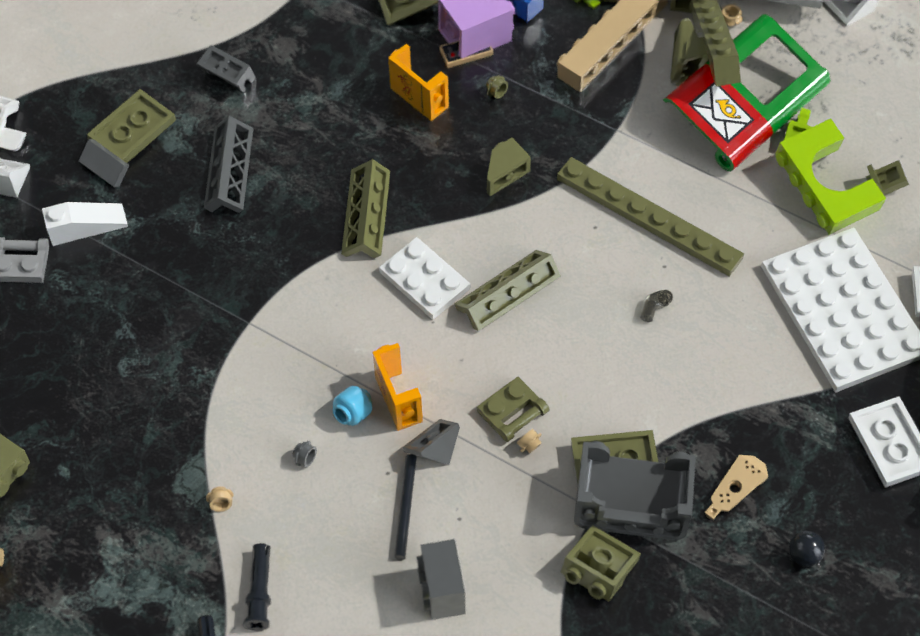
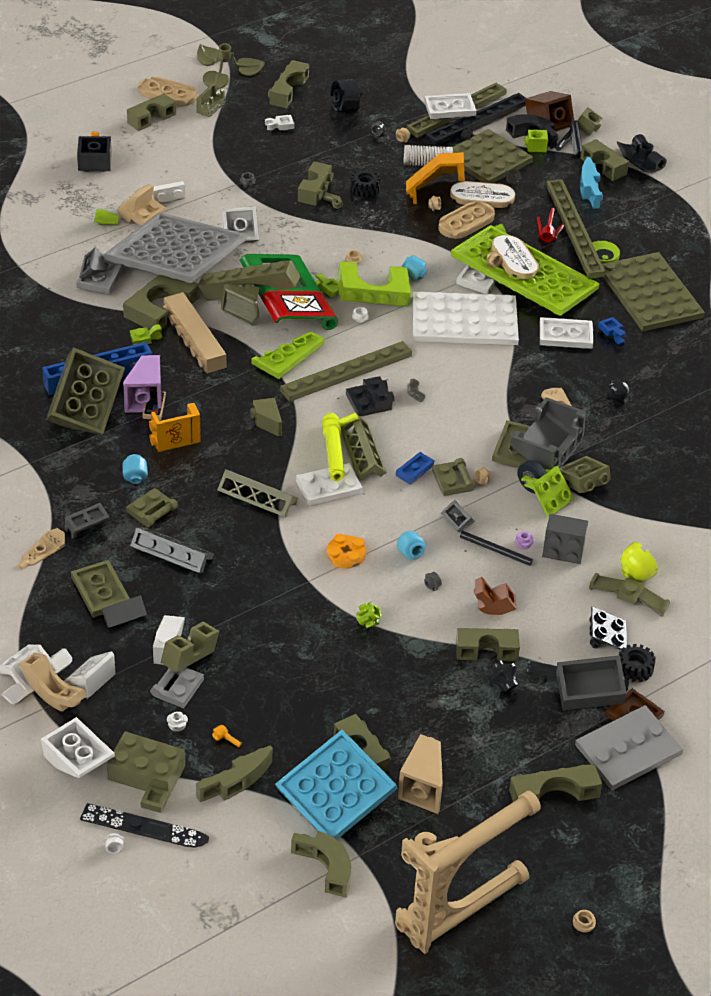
camera: 70 degrees left, 15 degrees down
(40, 239) = (181, 652): none -> olive arch
(165, 594) = (504, 676): none -> black rock
(184, 55) = (50, 543): none -> tan piece
(209, 535) = (502, 641): none -> olive arch
(210, 409) = (368, 614): none -> lime gear
(220, 499) = (443, 631): tan plate -> none
(258, 598) = (530, 632): black pin -> none
(289, 114) = (149, 503): none -> olive plate
(298, 532) = (494, 600): none -> dark orange brick
(312, 327) = (355, 554): none -> light orange plate
(336, 76) = (134, 469): none -> medium azure head
(403, 407) = (413, 517): light orange panel -> none
(430, 528) = (524, 540): none -> lavender plate
(496, 86) = (198, 399): olive plate -> none
(501, 358) = (415, 468): none -> blue plate
(514, 241) = (332, 429): none -> neon yellow cylinder
(538, 530) = (546, 484): none -> lime plate
(610, 259) = (370, 397): none -> black plate
(624, 140) = (288, 355): none -> lime wing
(767, 182) = (360, 314): none -> white plate
(879, 136) = (353, 256): none -> tan plate
(889, 177) = (386, 261): olive bracket -> none
(902, 209) = (415, 267): none -> medium azure head

